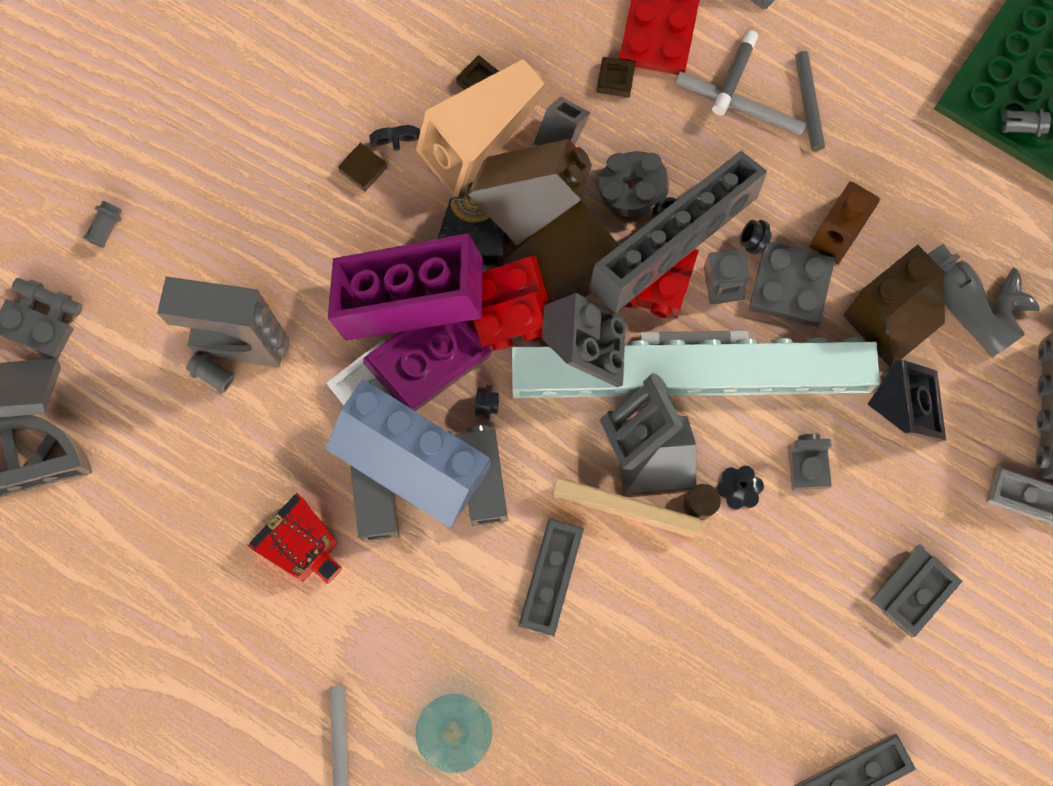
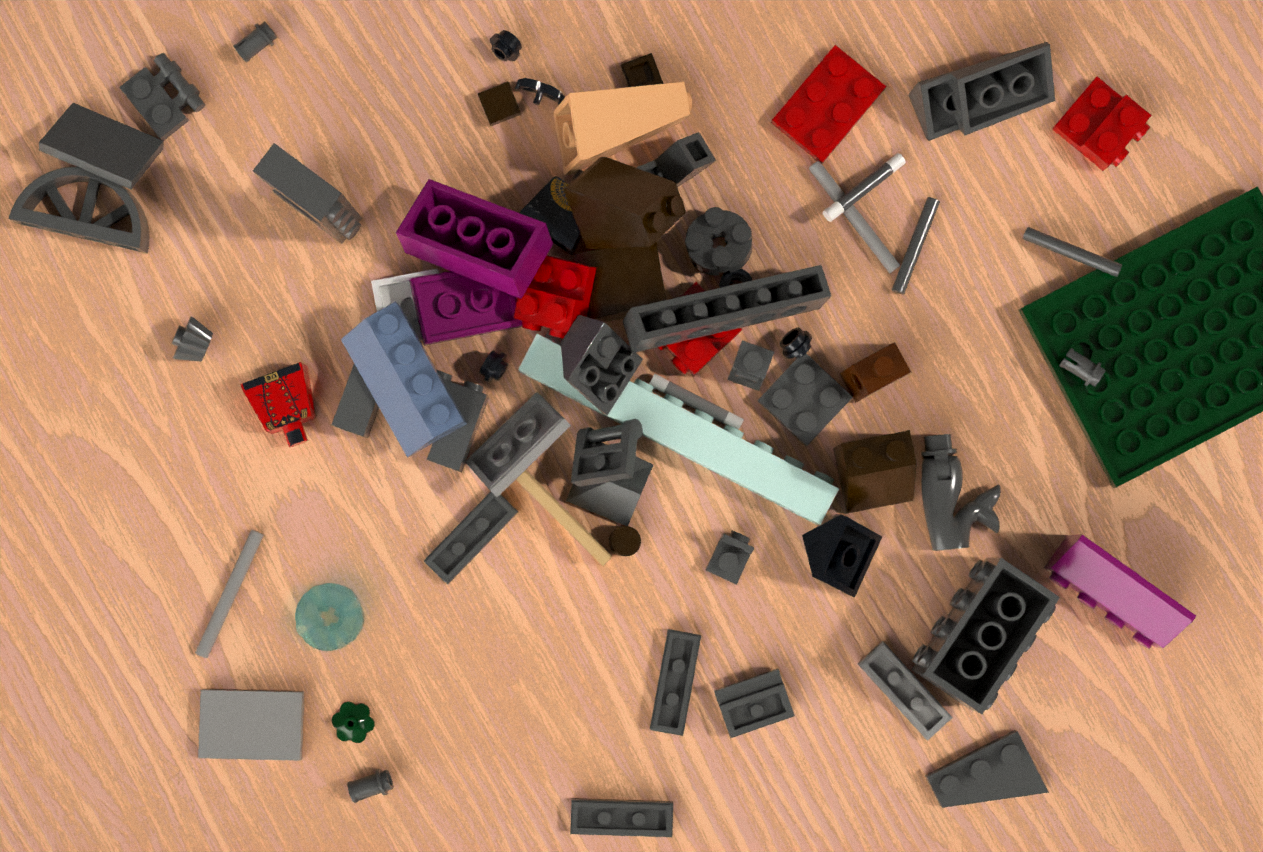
camera: 30 degrees right, 10 degrees up
(177, 530) = (192, 341): none -> dark grey piece
(210, 372) = (282, 220): dark grey pin -> none
(341, 112) = (505, 46): none -> black plate
(550, 461) = (517, 444): none -> light grey tile
(616, 77) = (760, 135): dark brown tile -> none
(735, 495) = (666, 556): black plant -> none
(828, 613) = (675, 682): none -> dark grey tile
(952, 33) = (1072, 251): none -> dark grey bar

